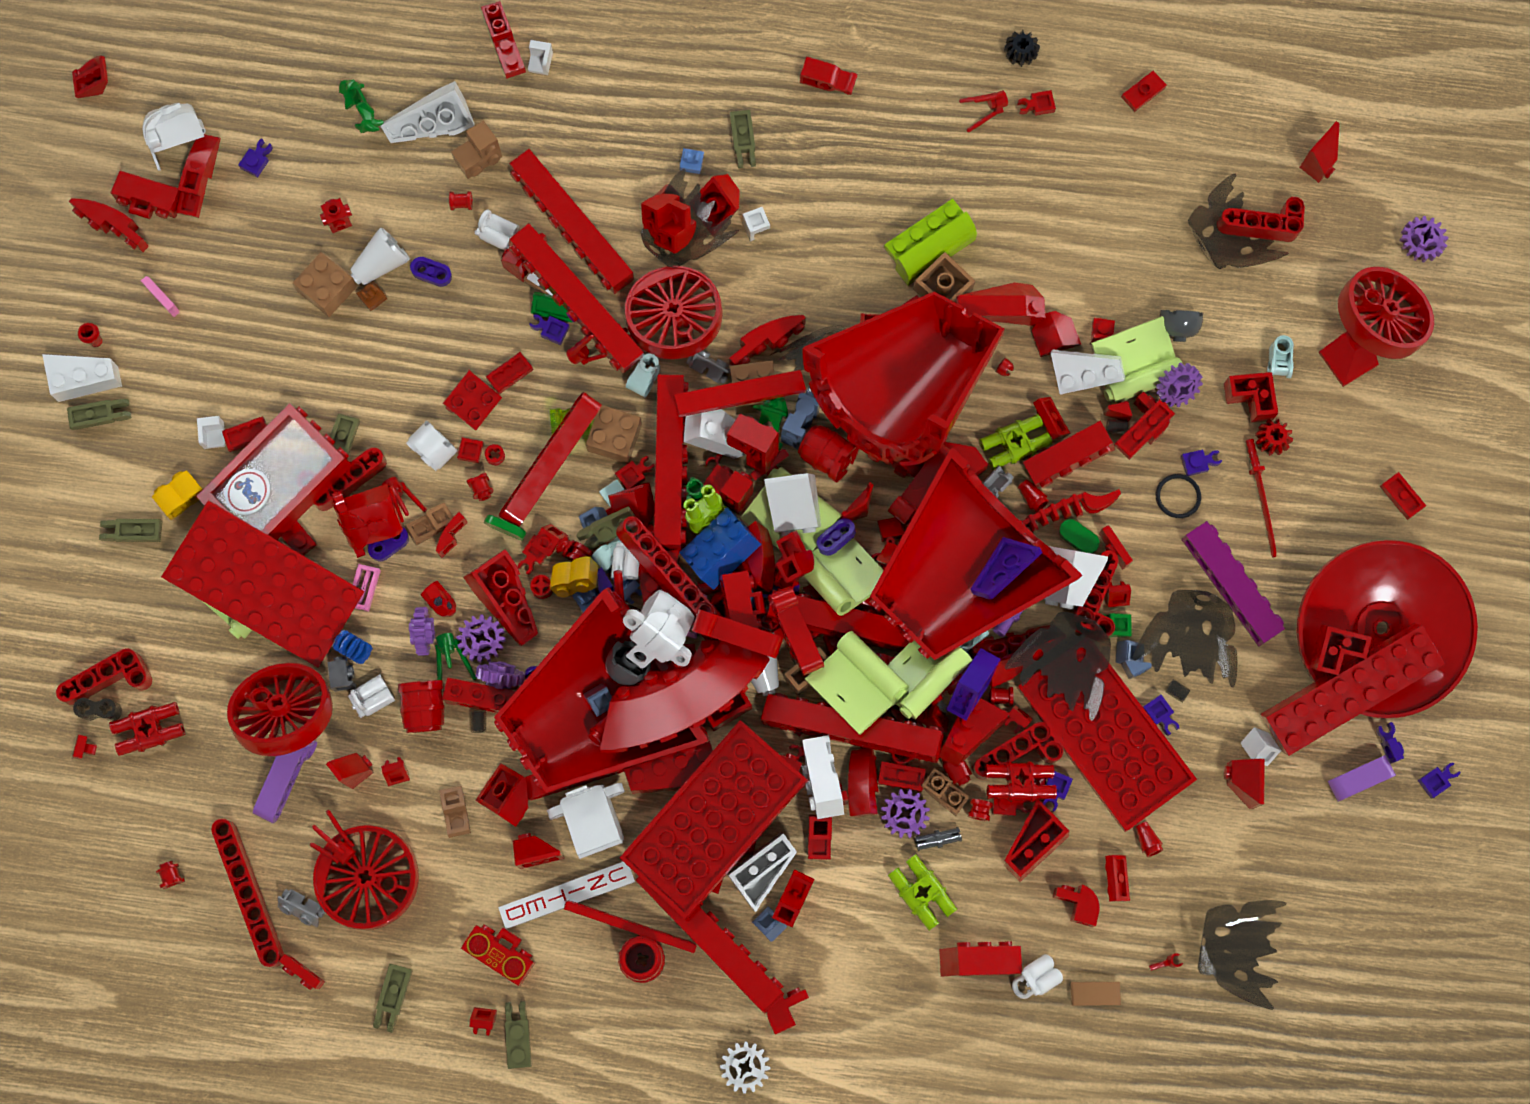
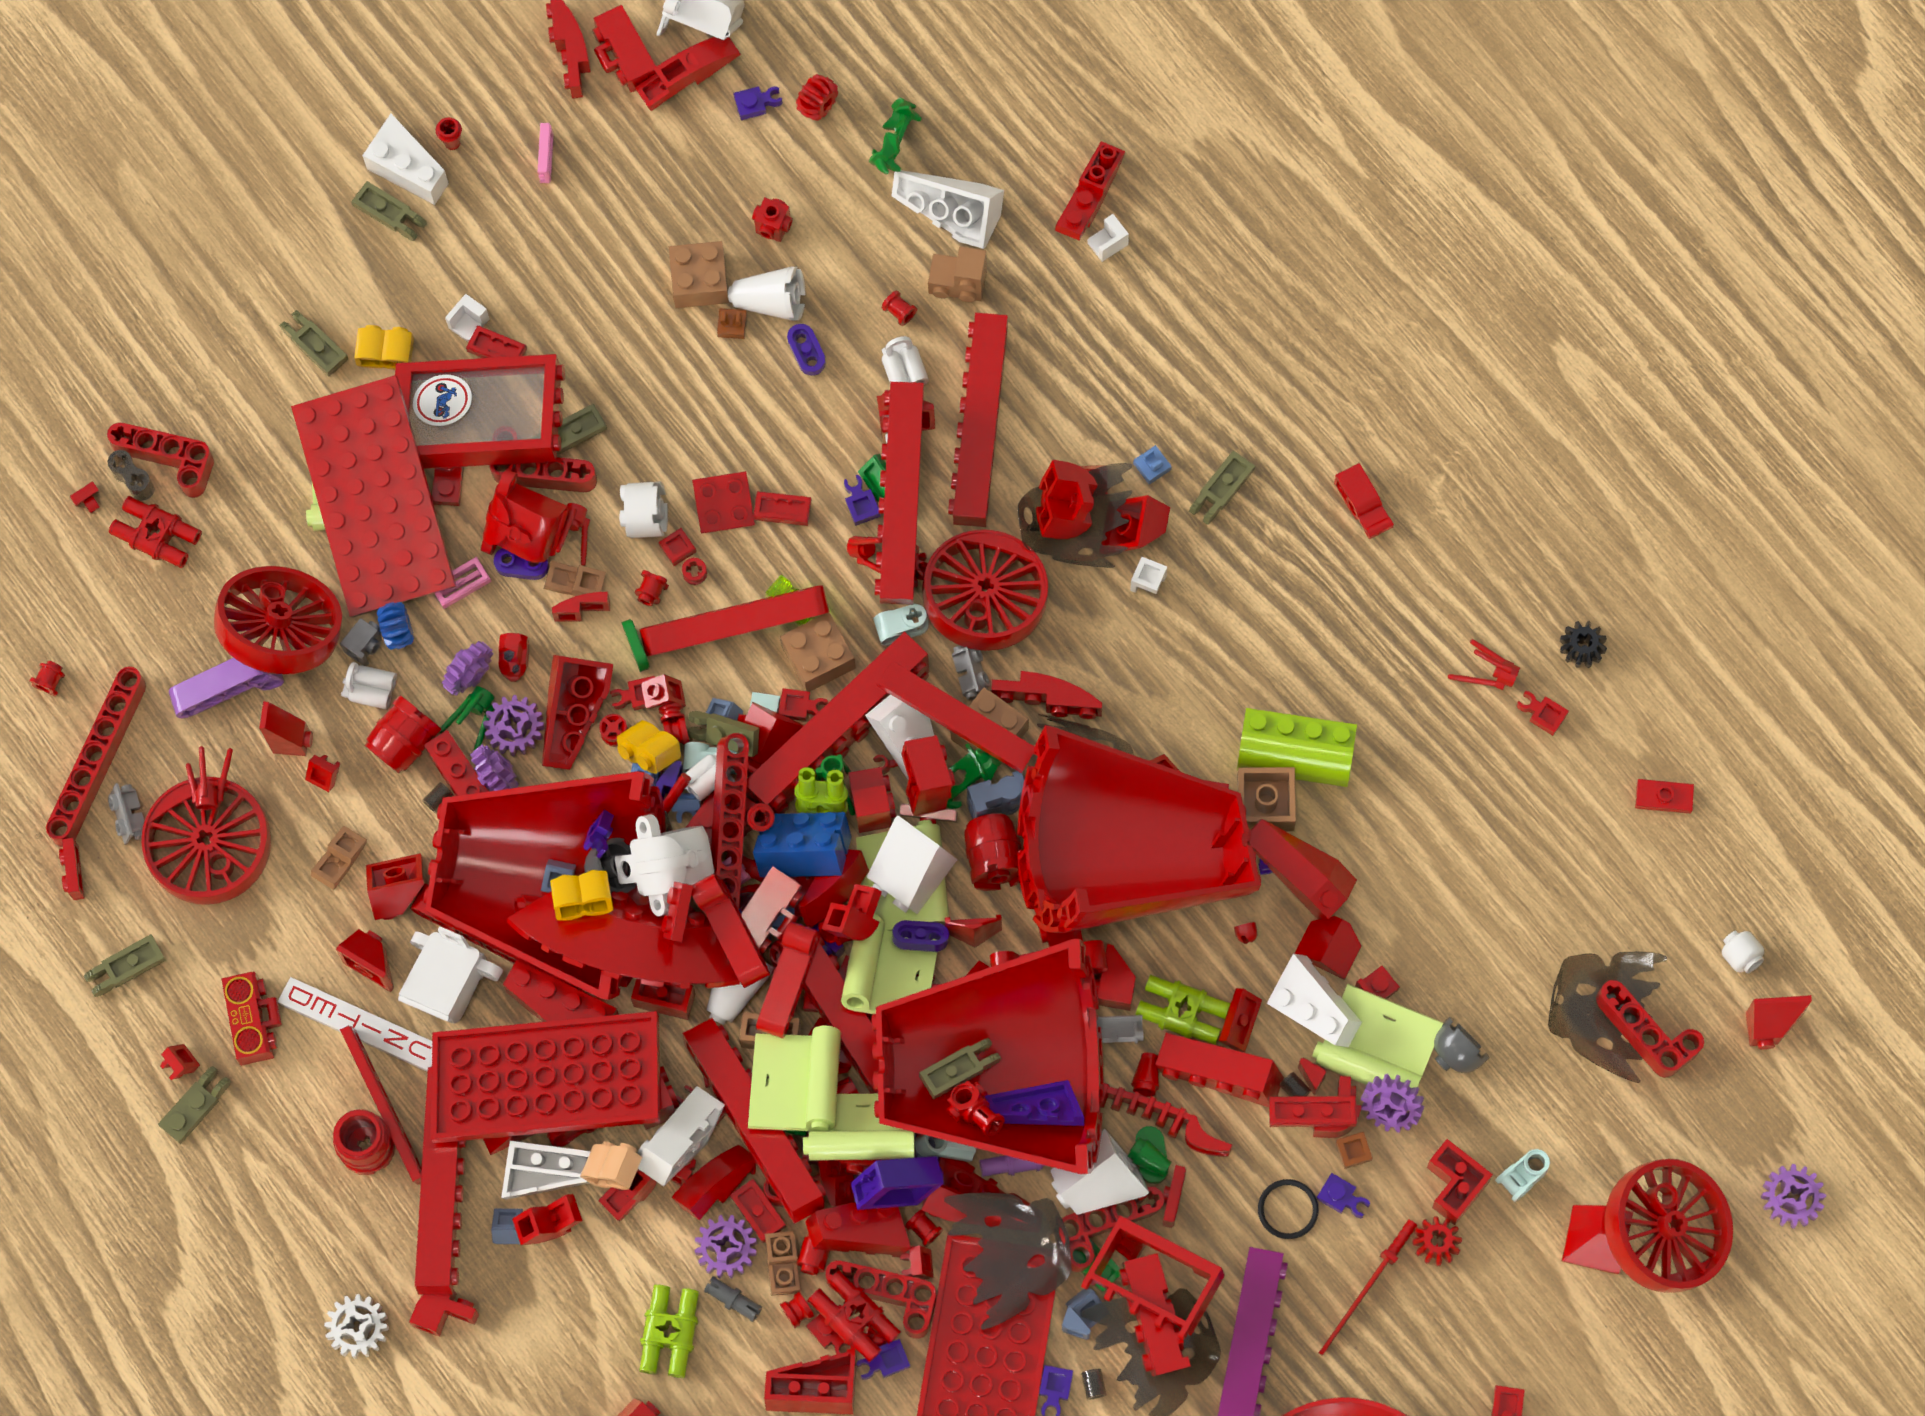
camera: 50 degrees right, 5 degrees down
(291, 123) = (817, 97): none -> red gear
(603, 651) = (599, 833): none -> dark purple plate
(632, 695) = (581, 895): none -> yellow brick
(684, 554) = (765, 818): none -> red cone
(700, 651) = (679, 900): none -> red plate
(804, 832) = (611, 1165): none -> light nougat brick
(940, 589) = (957, 1068): none -> olive hinge
(978, 601) = (976, 1110): none -> red connector
(1080, 539) = (1148, 1156): none -> green cone
(1175, 569) = (1142, 1236): none -> red hinge
(1178, 621) = (1162, 1345): none -> red wedge
(1183, 430) = (1354, 1150): none -> dark orange tile
(1269, 134) = (1743, 951): none -> white head

